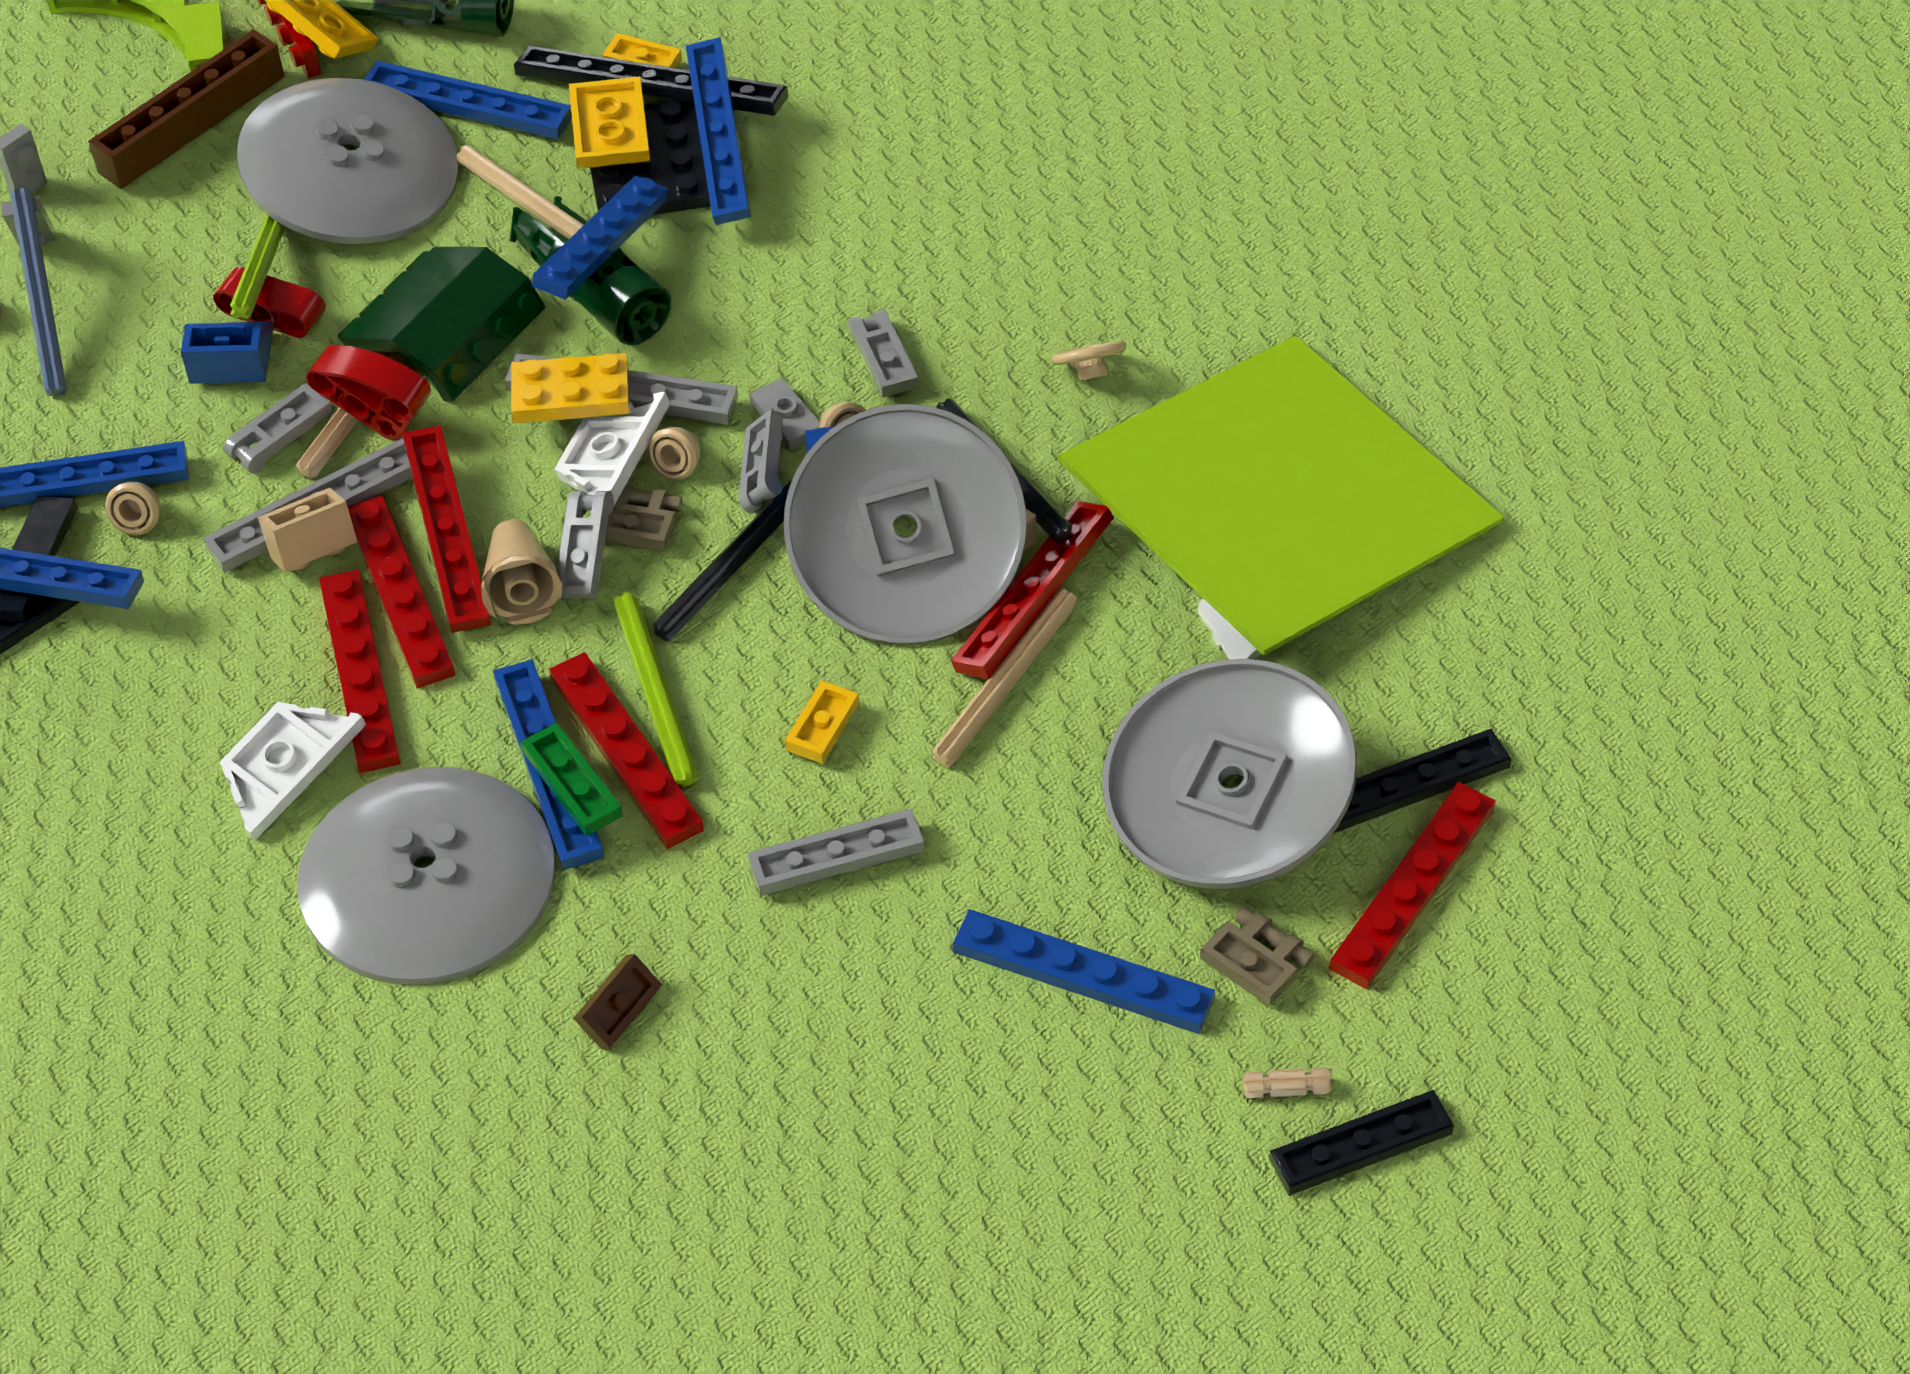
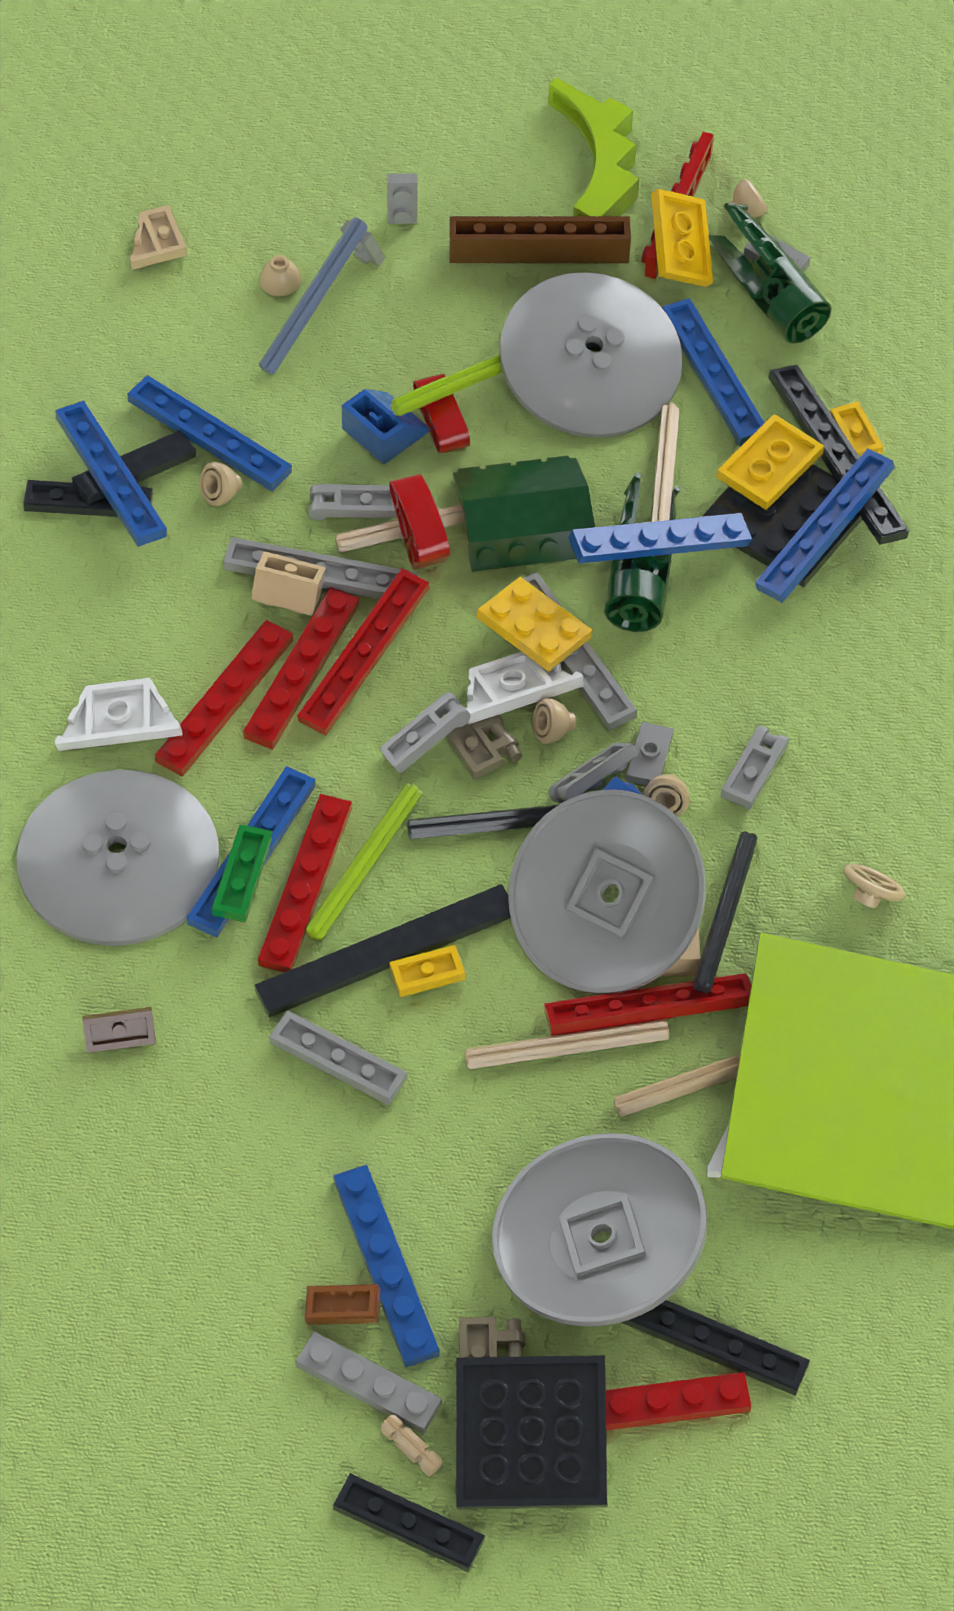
camera: 45 degrees right, 5 degrees up
(519, 575) = (368, 716): tan cone -> none
(761, 743) = (377, 952): none -> black tile
(1093, 1031) = (342, 1304): none -> dark orange plate
(1133, 625) = (676, 1086): none -> tan axle
(1188, 1071) = (368, 1382): none -> light grey plate
(1373, 974) = (531, 1432): none -> black plate

